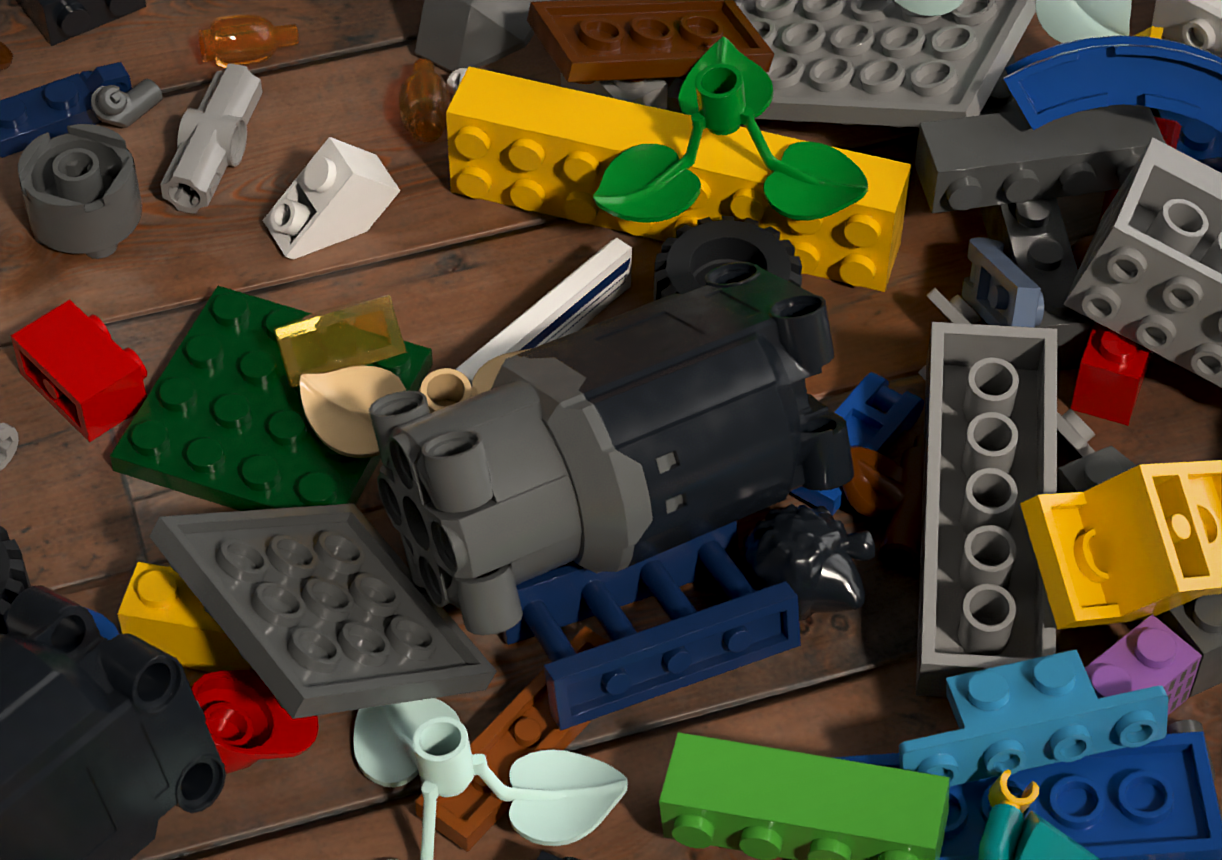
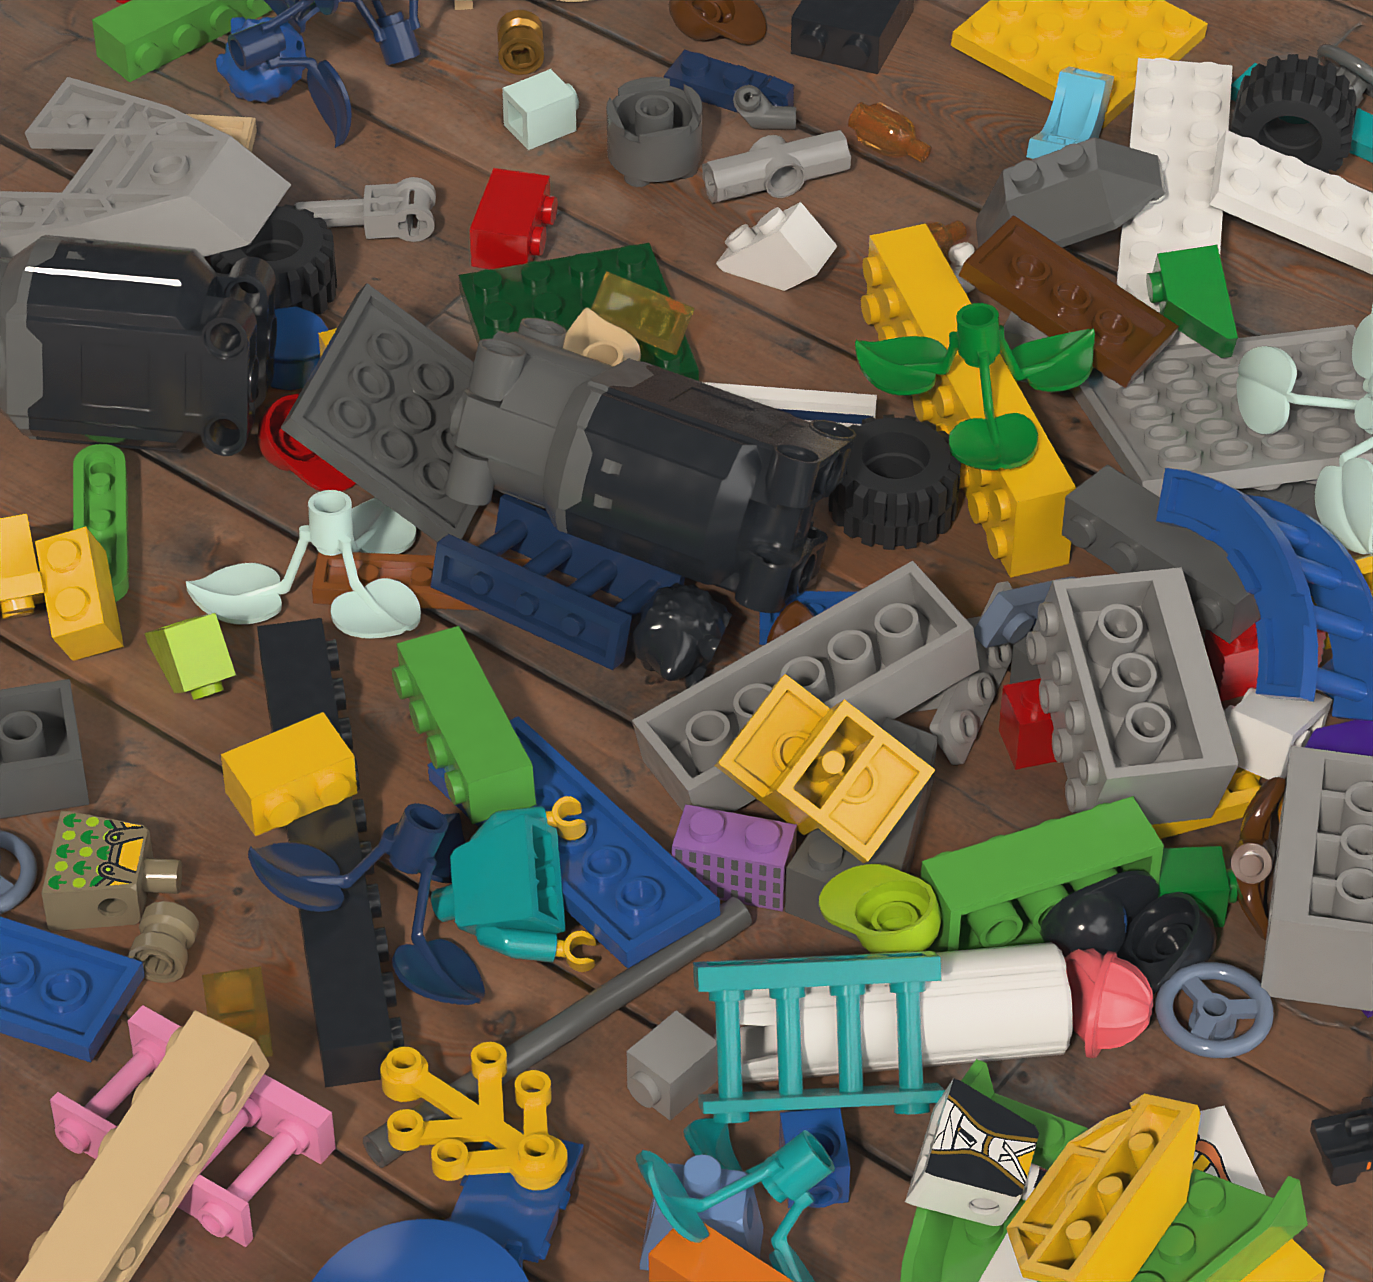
camera: 55 degrees right, 5 degrees down
(1033, 718) = (628, 792): dark azure bracket -> none

